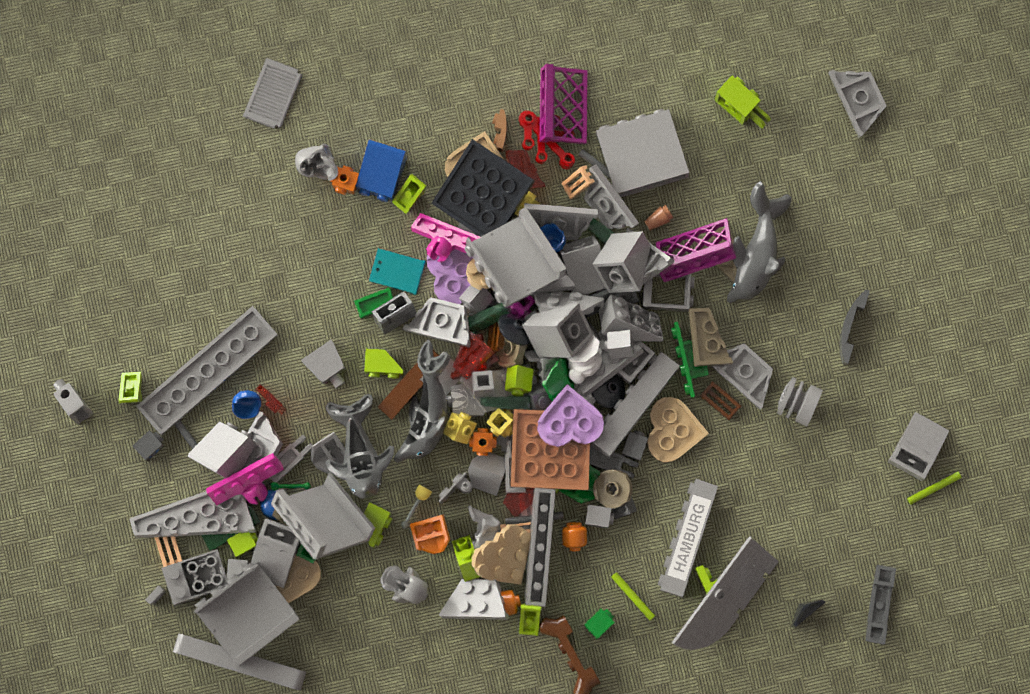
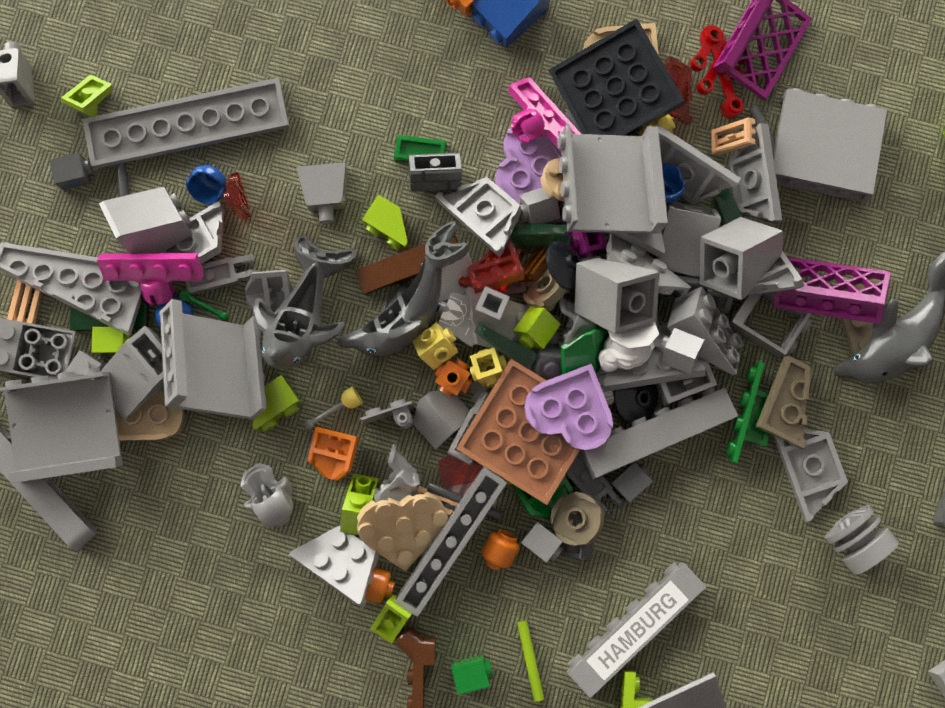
camera: 30 degrees right, 0 degrees up
(397, 271) = (465, 128): teal container -> none
(409, 193) = (529, 46): lime slope -> none
(500, 126) = (674, 32): medium nougat slope -> none
(658, 218) = (805, 230): nougat cone -> none
(674, 430) = (688, 489): tan plate -> none
(715, 406) = (753, 489): reddish brown tile -> none

